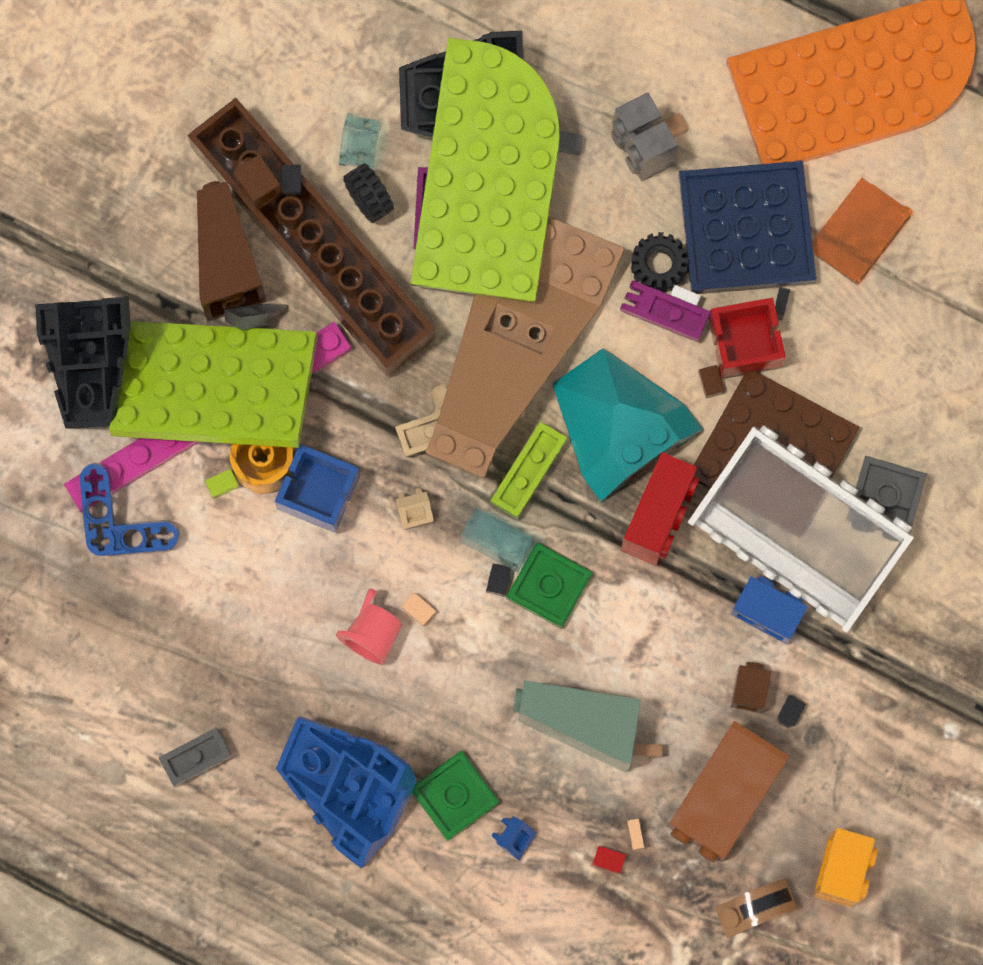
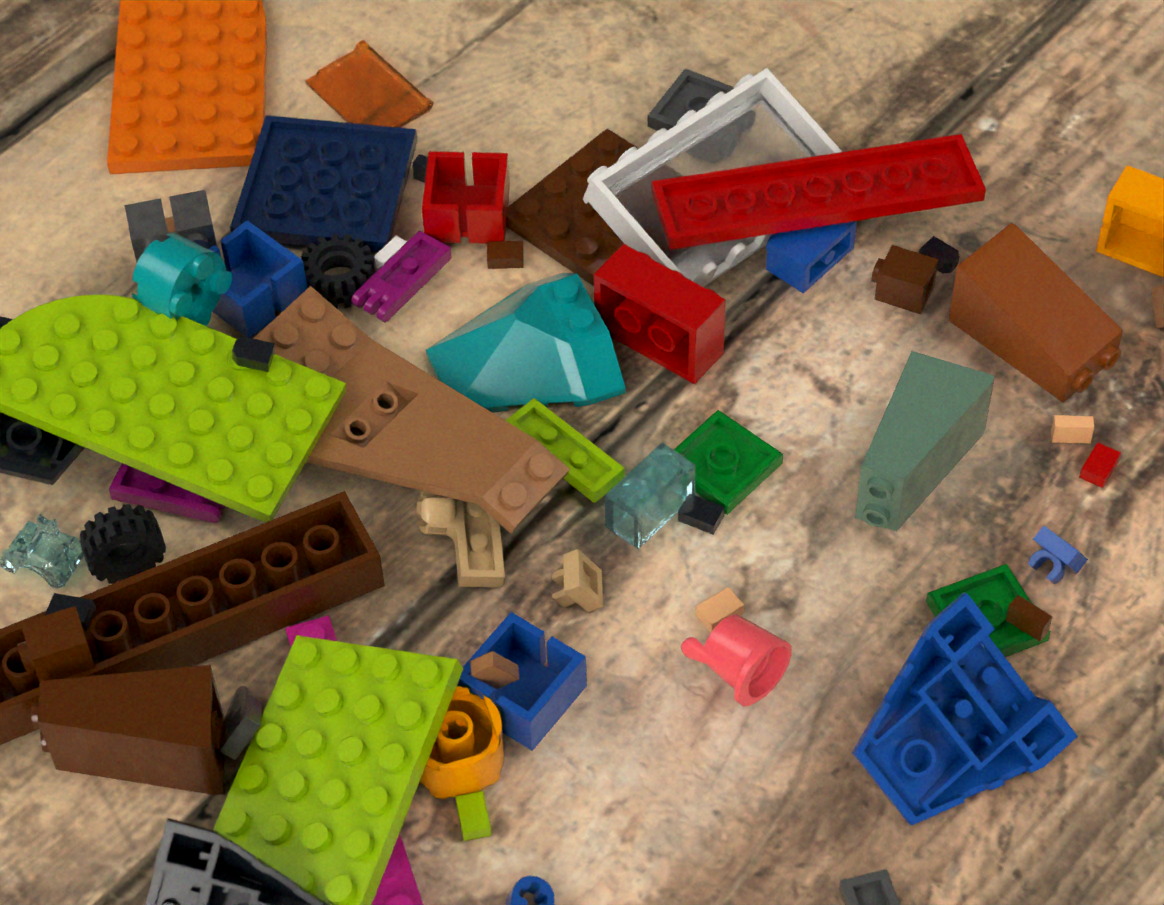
camera: 75 degrees left, 25 degrees down
(310, 468) = (494, 670): none -> medium nougat piece
(447, 822) = (1029, 618): none -> reddish brown piece
(530, 229) = (253, 353): none -> black piece
(581, 157) = (180, 279): none -> teal brick
(623, 203) = (263, 279): none -> blue piece
(804, 604) = (817, 191): none -> red plate

